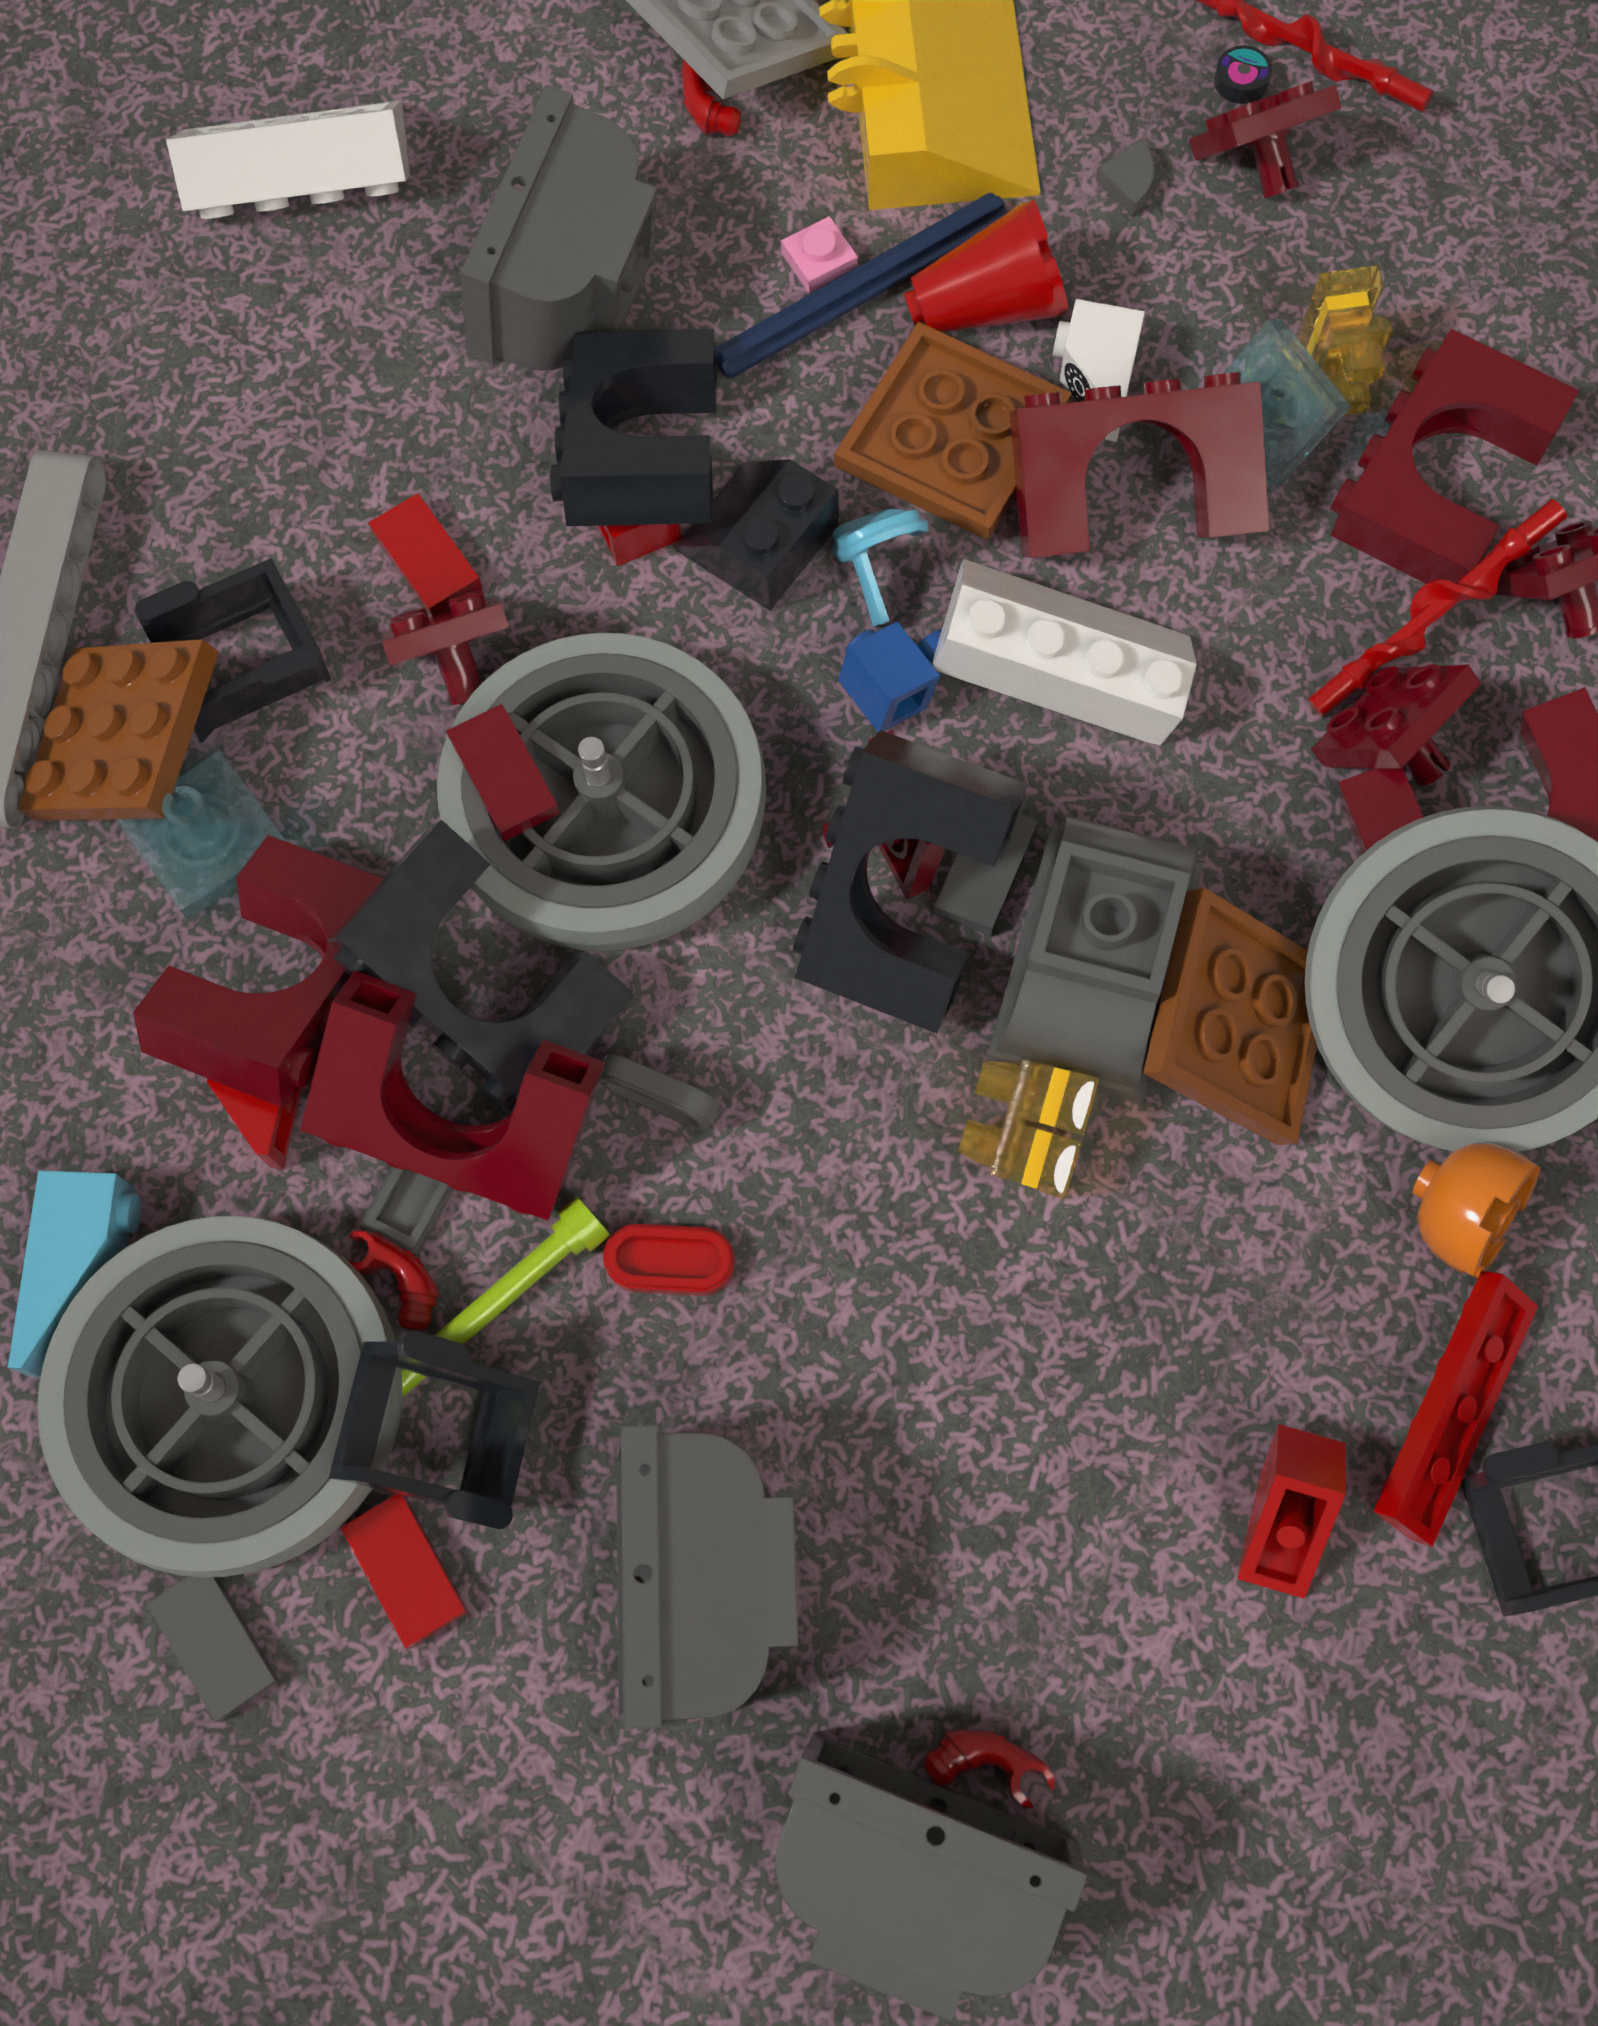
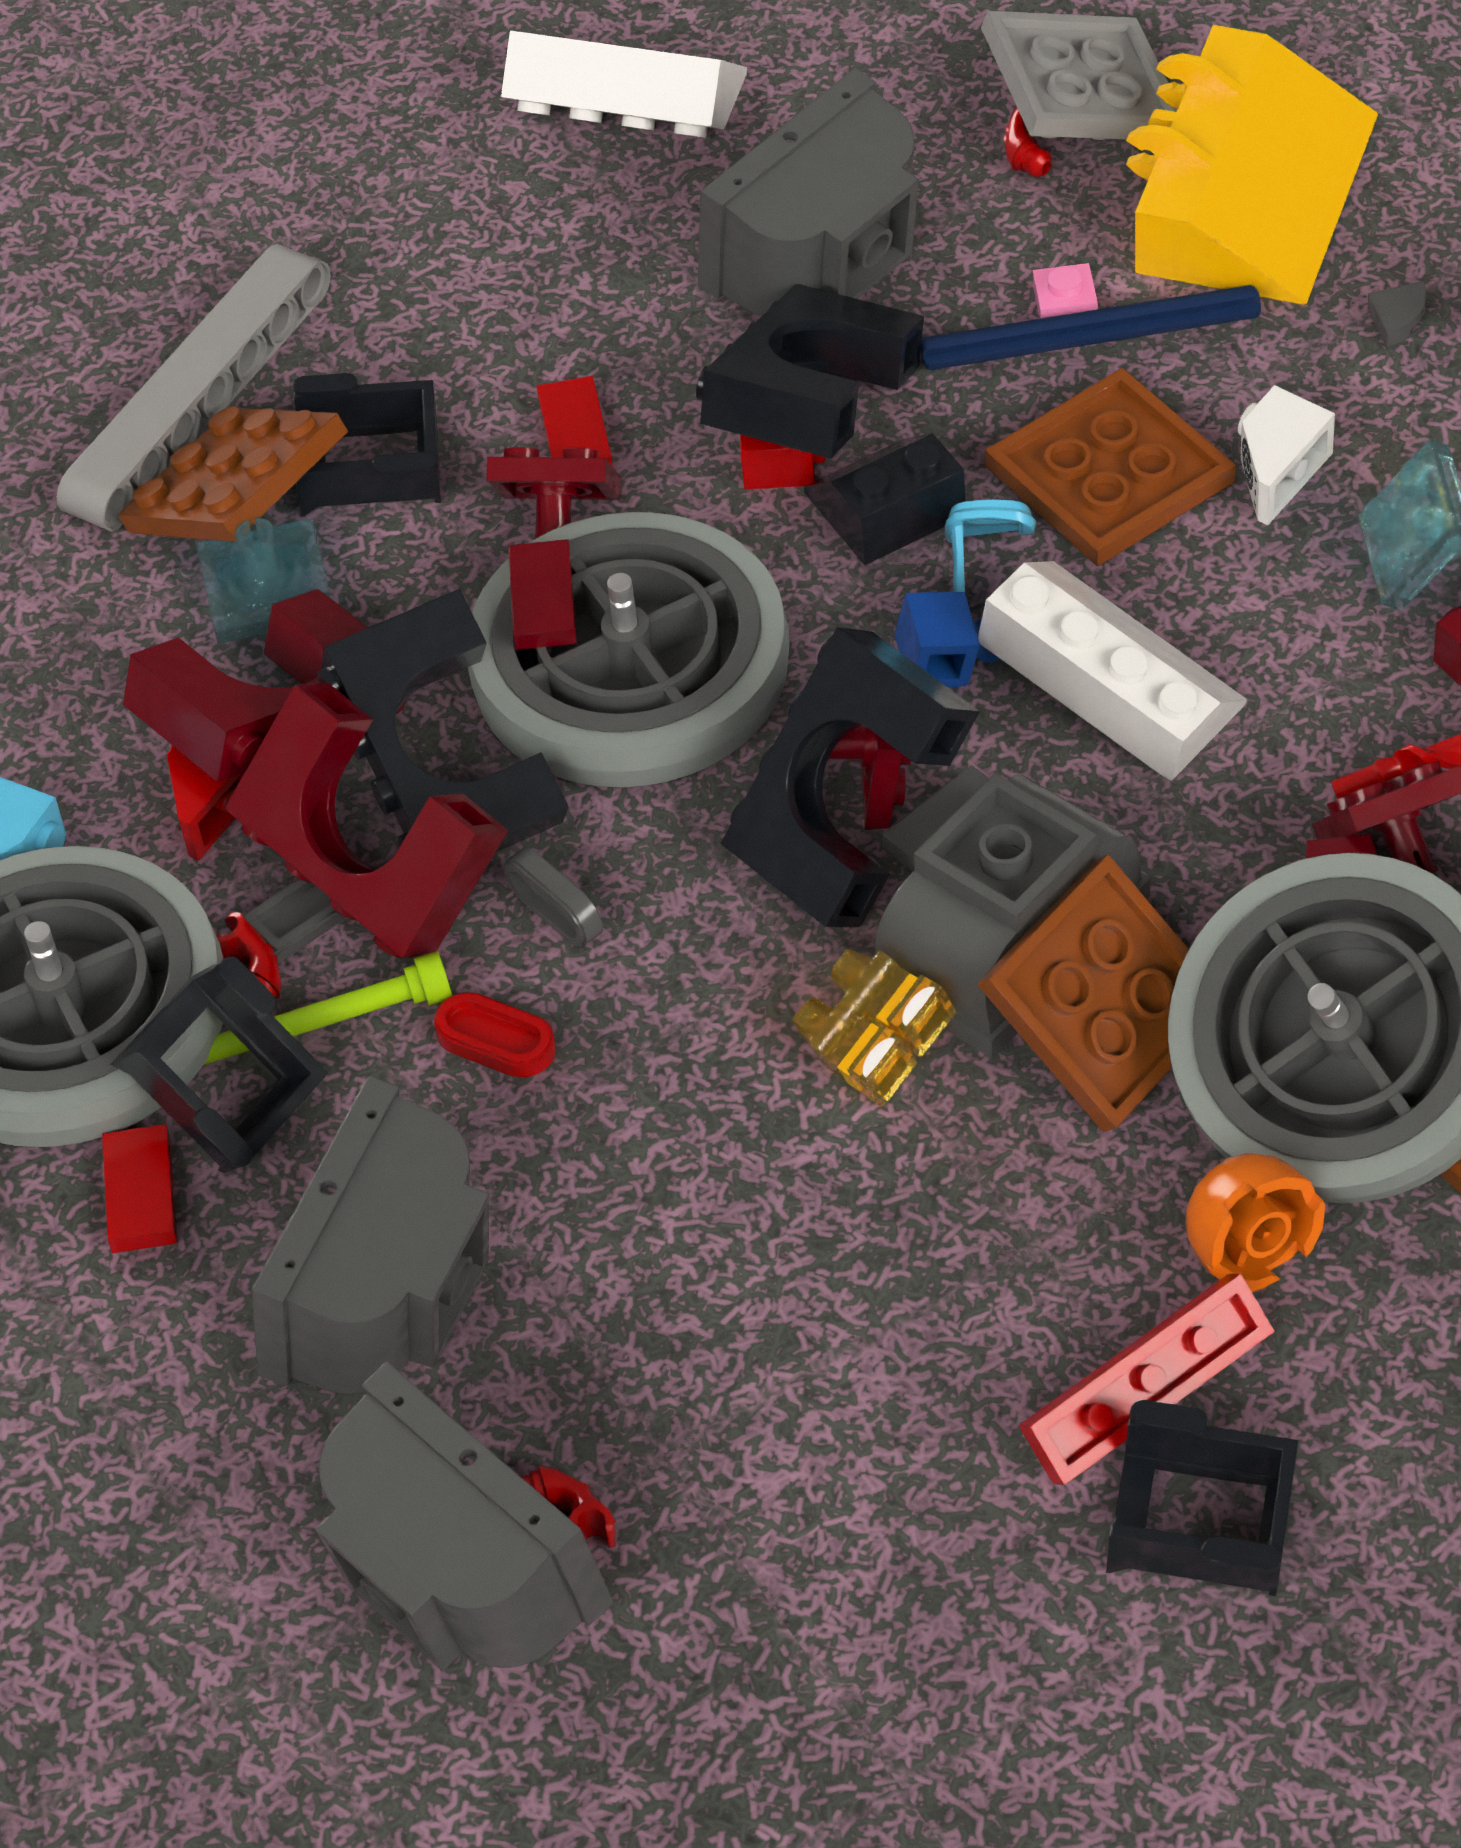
camera: 25 degrees right, 20 degrees down
(992, 278) = (1209, 349): red cone -> none
(1213, 424) = (1189, 485): dark red arch -> none
(1293, 1510) = (945, 1404): red slope -> none

